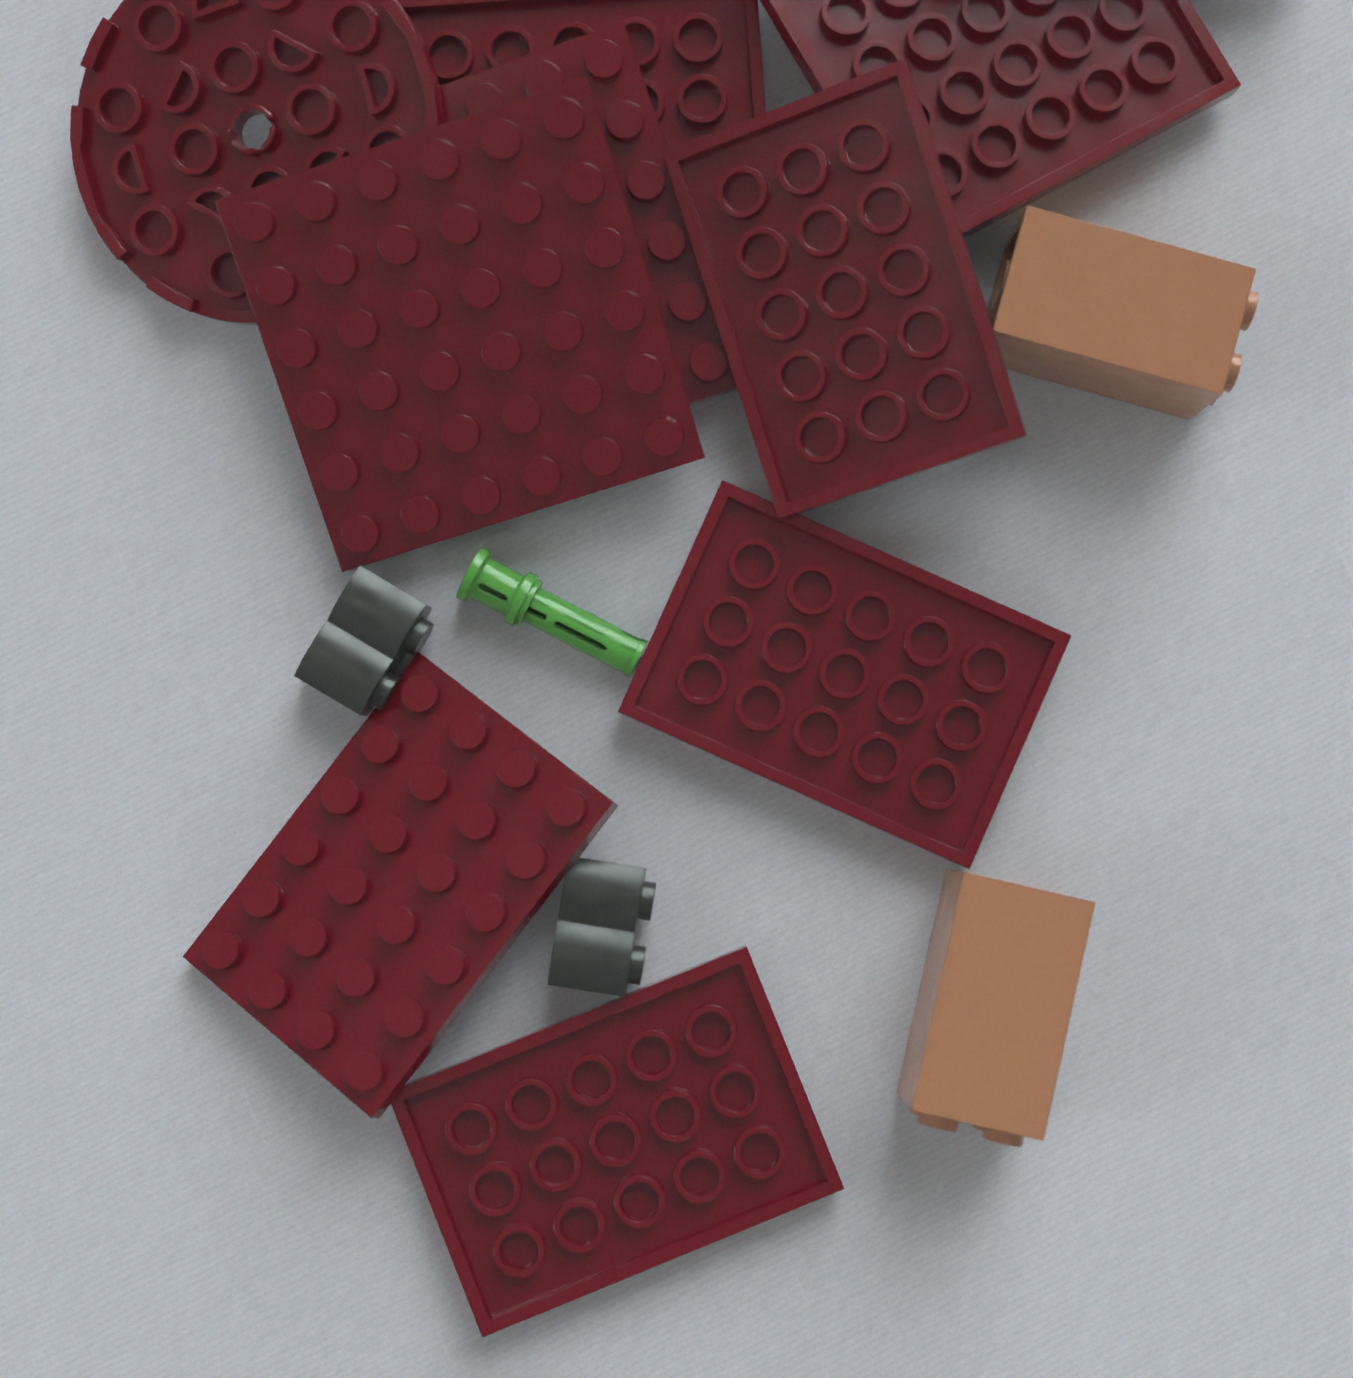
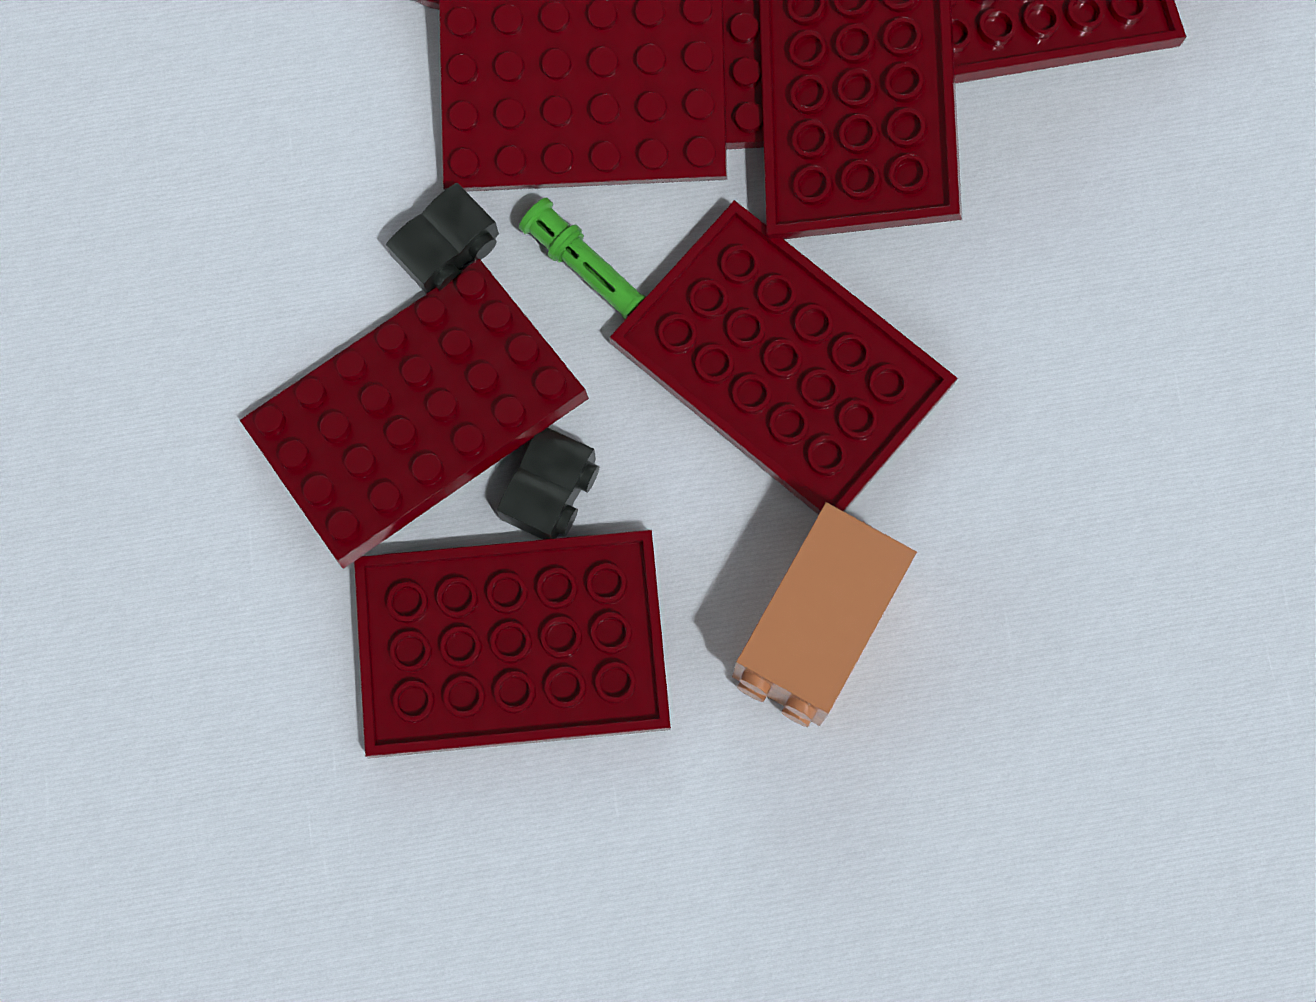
camera: 20 degrees right, 10 degrees down
(1119, 313) = (1052, 161): nougat brick -> none

